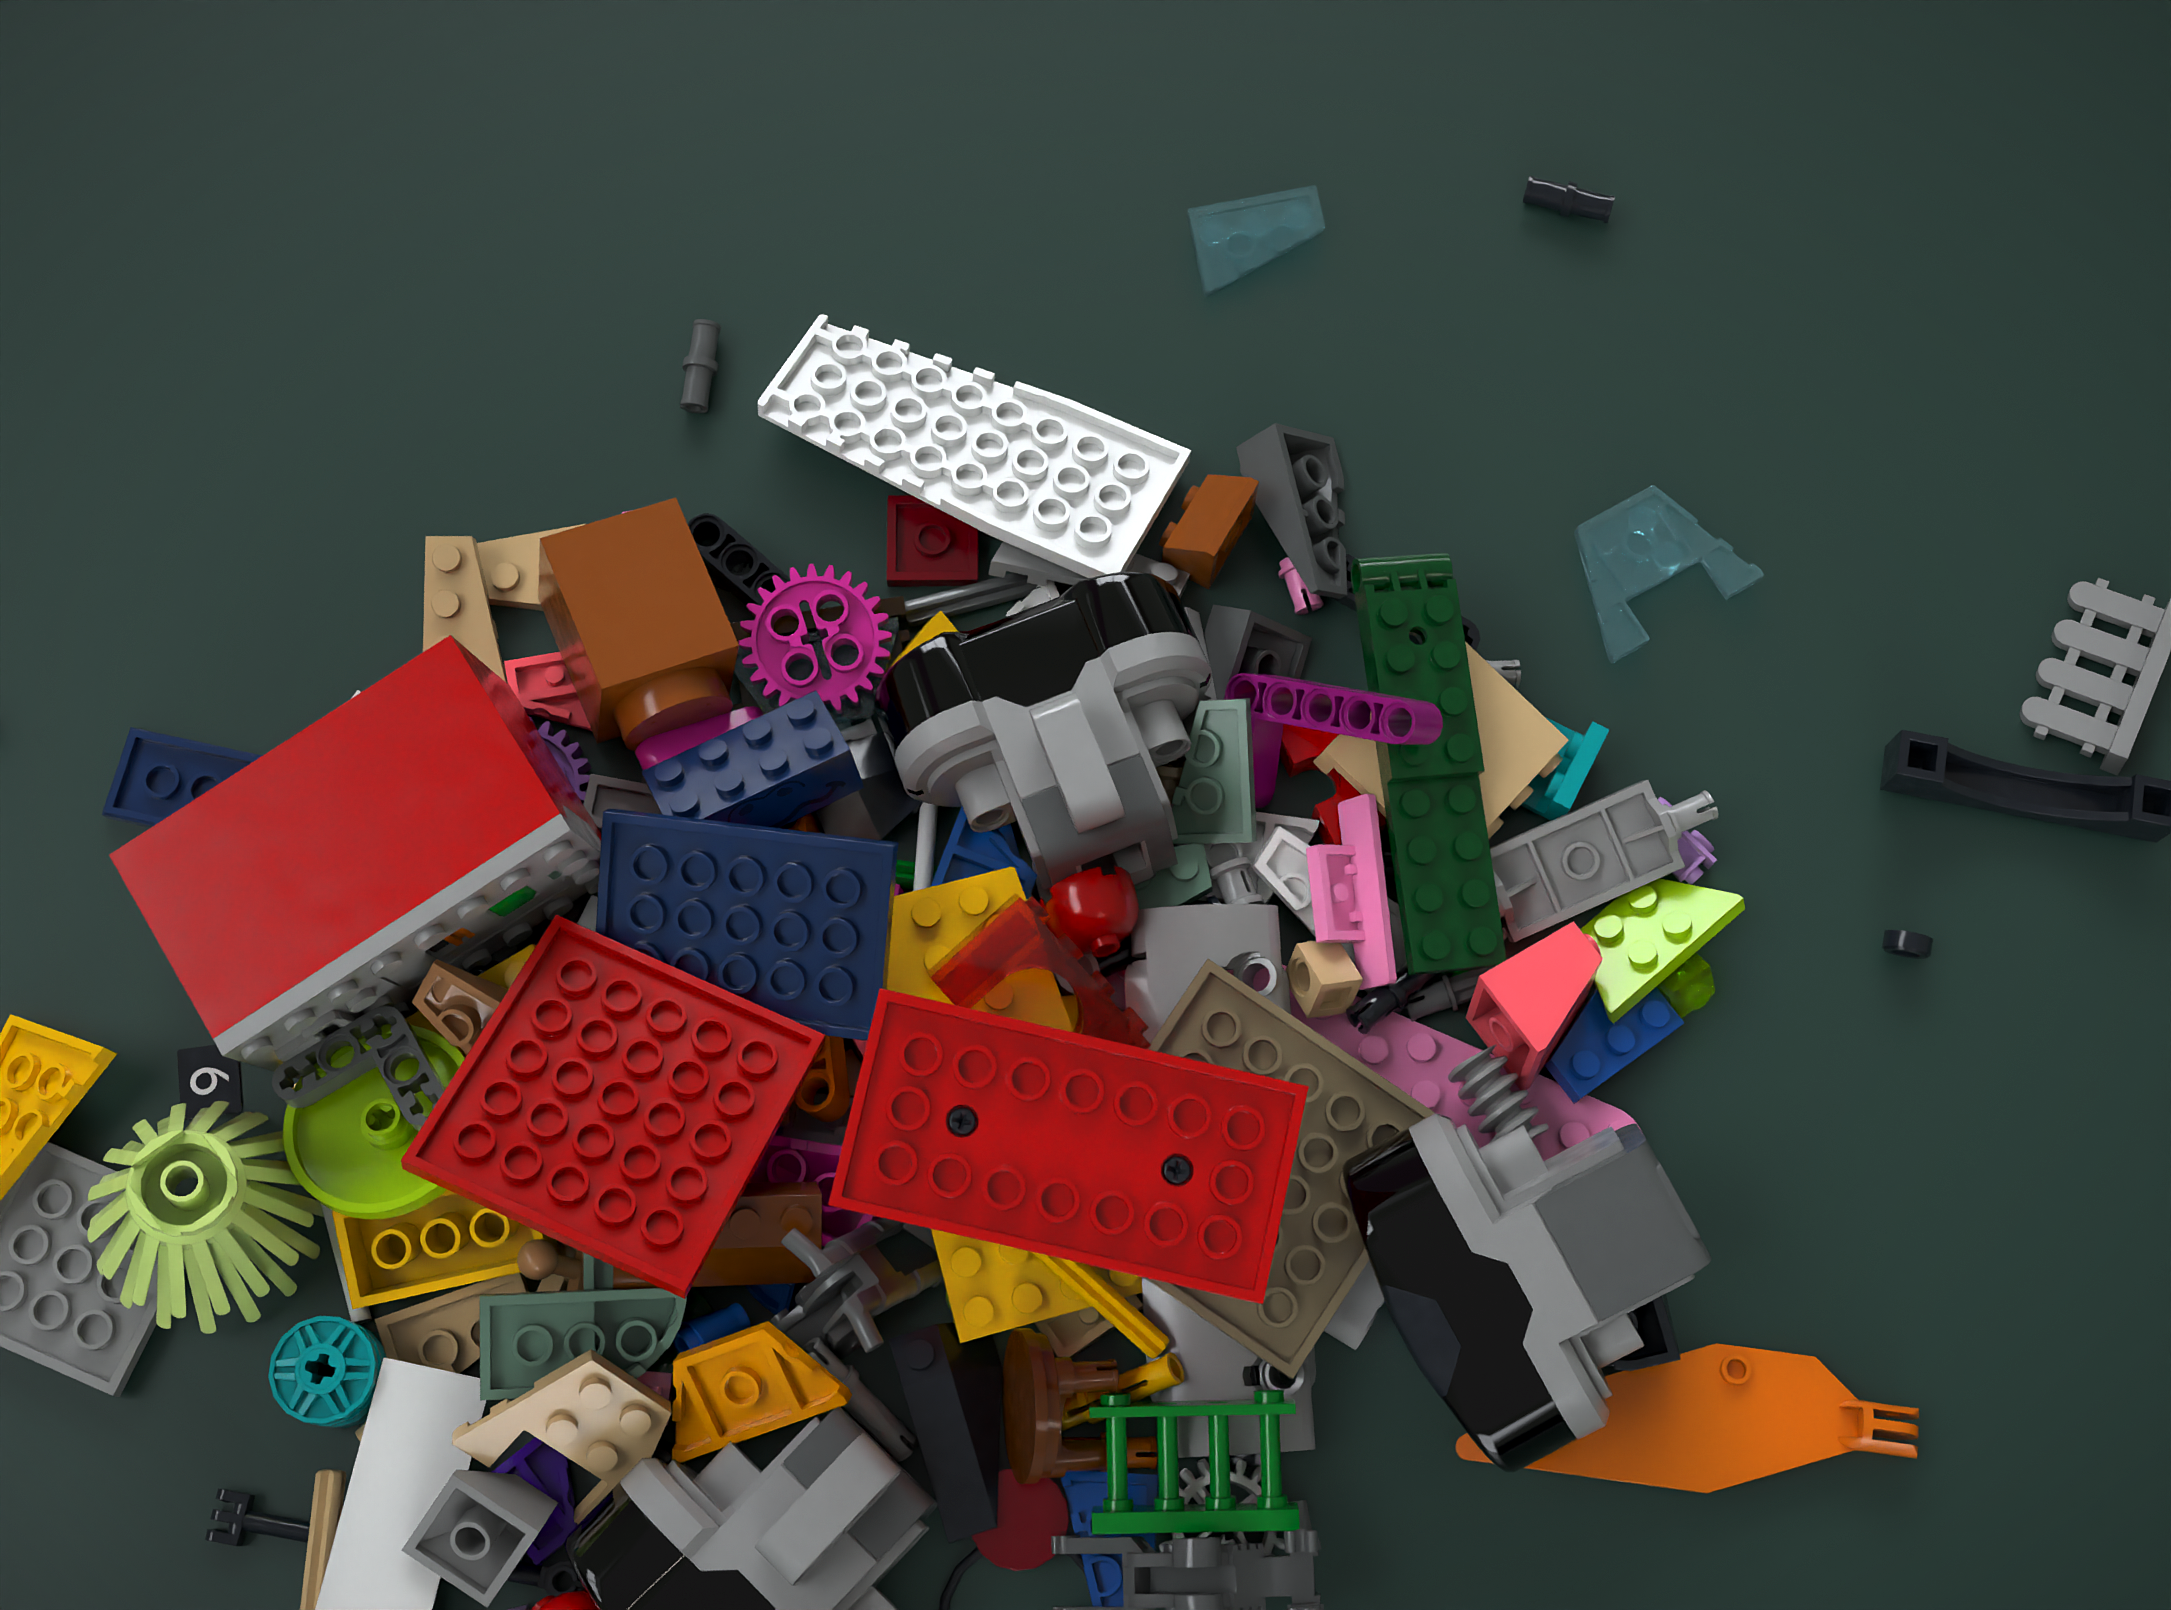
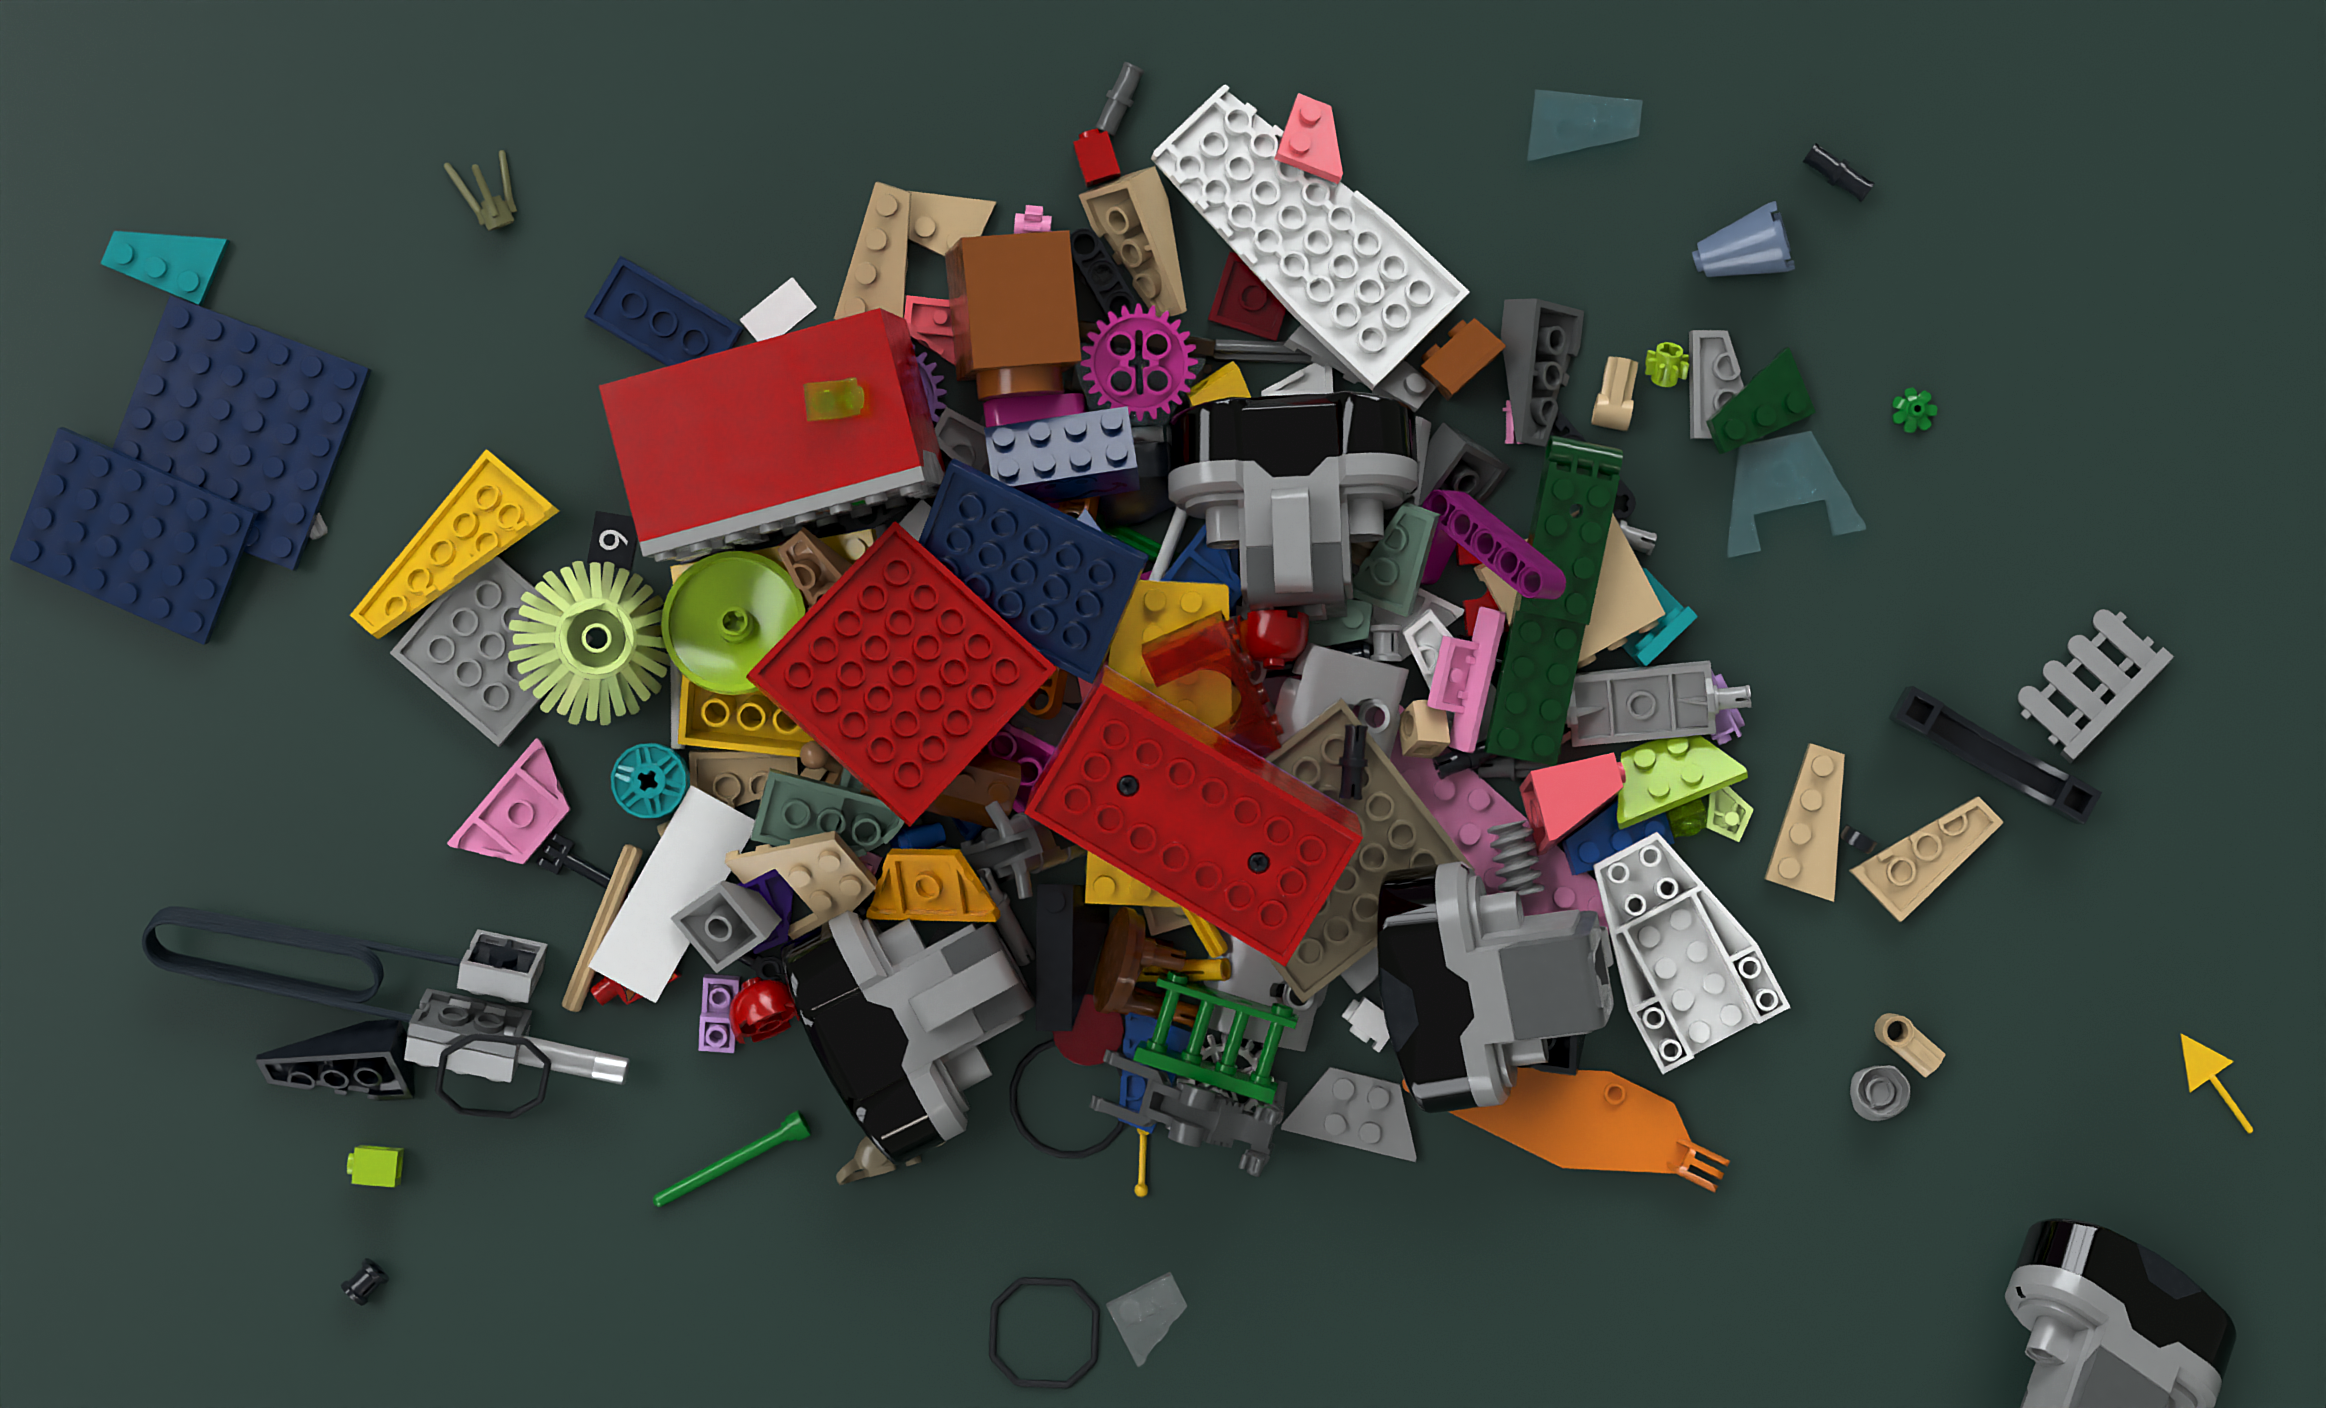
camera: 20 degrees right, 15 degrees up
(161, 1476) = (517, 810): none -> bright pink wing
(384, 1054) = (748, 578): dark grey beam -> none
(418, 762) = (833, 399): none -> clear neon green bracket
(693, 438) = (1096, 157): none -> red brick
(769, 502) = (1139, 228): none -> tan wedge
(944, 342) = (1311, 140): none -> coral wing
(1249, 1029) = (1353, 761): none -> black pin
(1386, 1382) = (1367, 1022): none -> white brick
(1408, 525) = (1614, 403): none -> tan piece
(1410, 1513) = (1355, 1113): none -> light grey wing
(1455, 462) = (1667, 364): none -> lime gear
(1499, 301) = (1747, 246): none -> sand blue cone
(1524, 479) = (1712, 377): none -> light grey wing
(1586, 474) = (1764, 405): none -> dark green wing
(1735, 965) = (1728, 813): none -> yellowish green piece
(1754, 1157) = (1680, 954): none -> white wedge
(1760, 431) = (1909, 415): none -> green plant
(1843, 959) = (1810, 829): none -> tan wing
(1994, 947) = (1922, 861): none -> tan wing
(2069, 1253) = (1879, 1092): none -> light grey hair
(2077, 1178) = (1910, 1044): none -> tan piece

